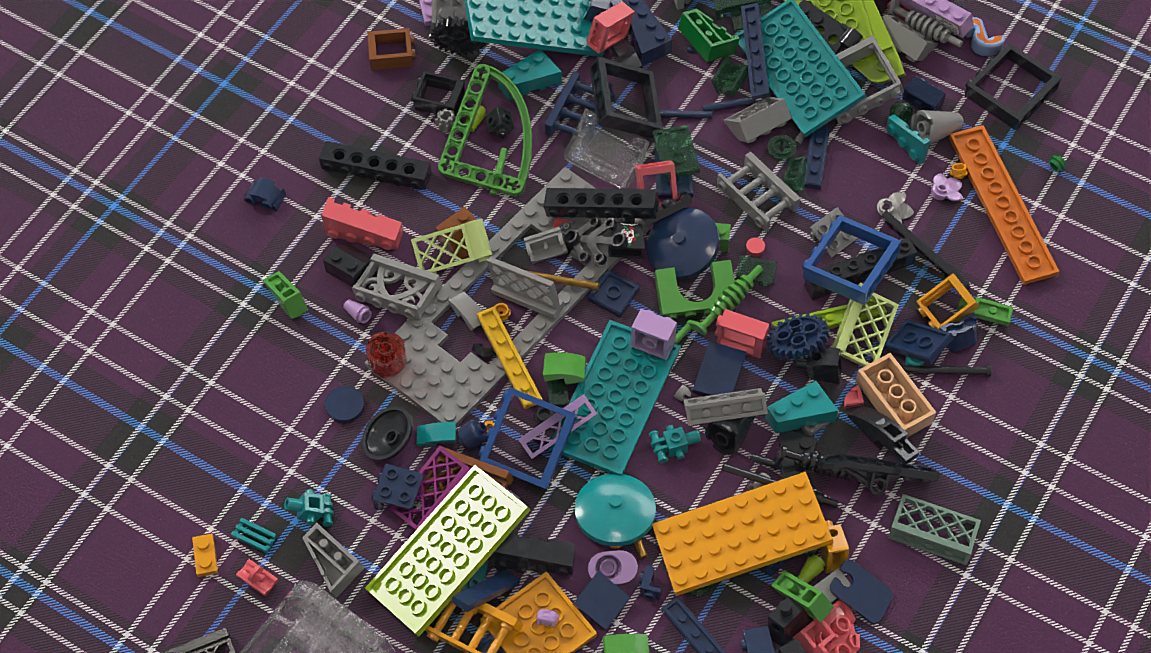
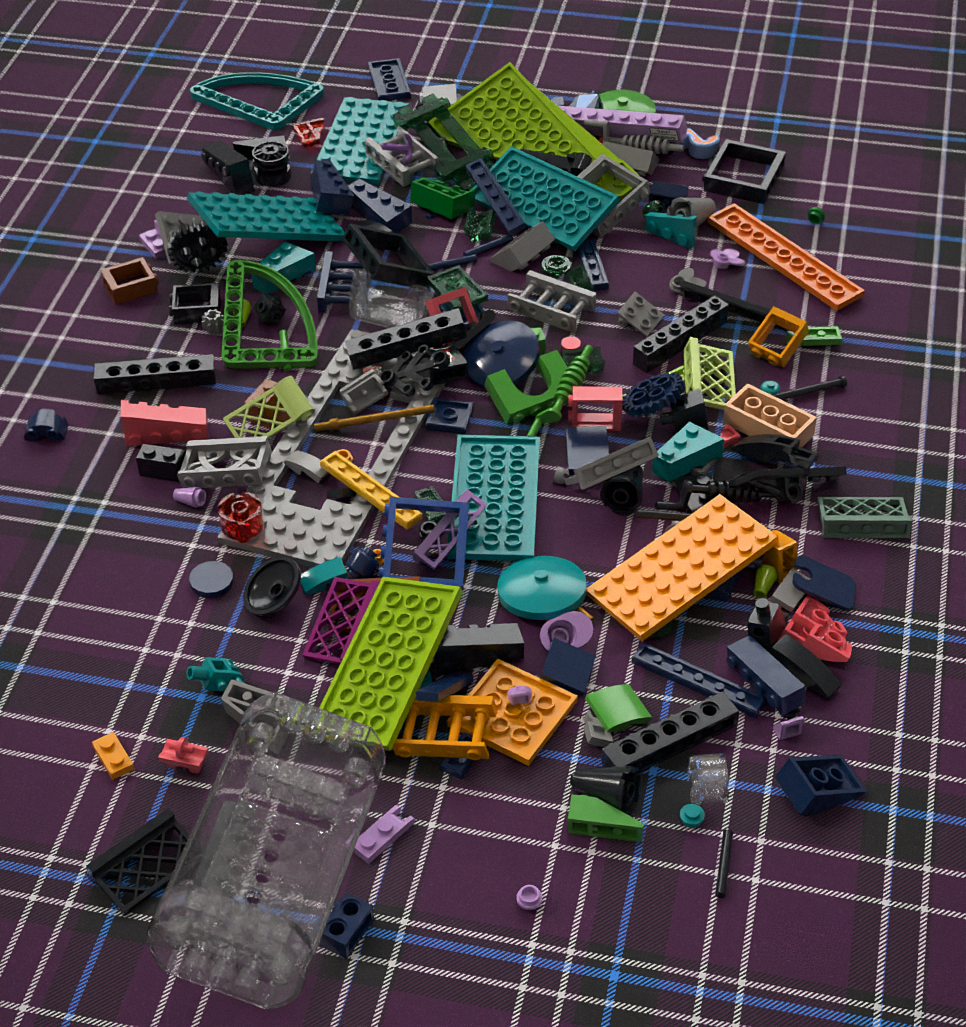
camera: 20 degrees left, 15 degrees down
(243, 522) = (162, 718): teal tile -> none
(286, 295) = (108, 502): bright green slope -> none
(396, 488) = (303, 628): dark blue bracket -> none
(524, 288) = (363, 436): light grey fence -> none
(565, 366) = (428, 481): bright green slope -> none
(610, 27) = (346, 206): coral window -> none
(646, 590) = (610, 645): dark blue bracket -> none
(653, 334) = (511, 426): lavender brick -> none
(673, 442) = (572, 516): teal piece -> none
(811, 599) = (785, 592): bright green slope -> none
(842, 286) = (672, 340): blue window -> none
(918, 341) = (768, 371): dark blue tile -> none
(958, 170) = (730, 242): light orange plate -> none
(964, 333) = (801, 359): dark blue cylinder -> none

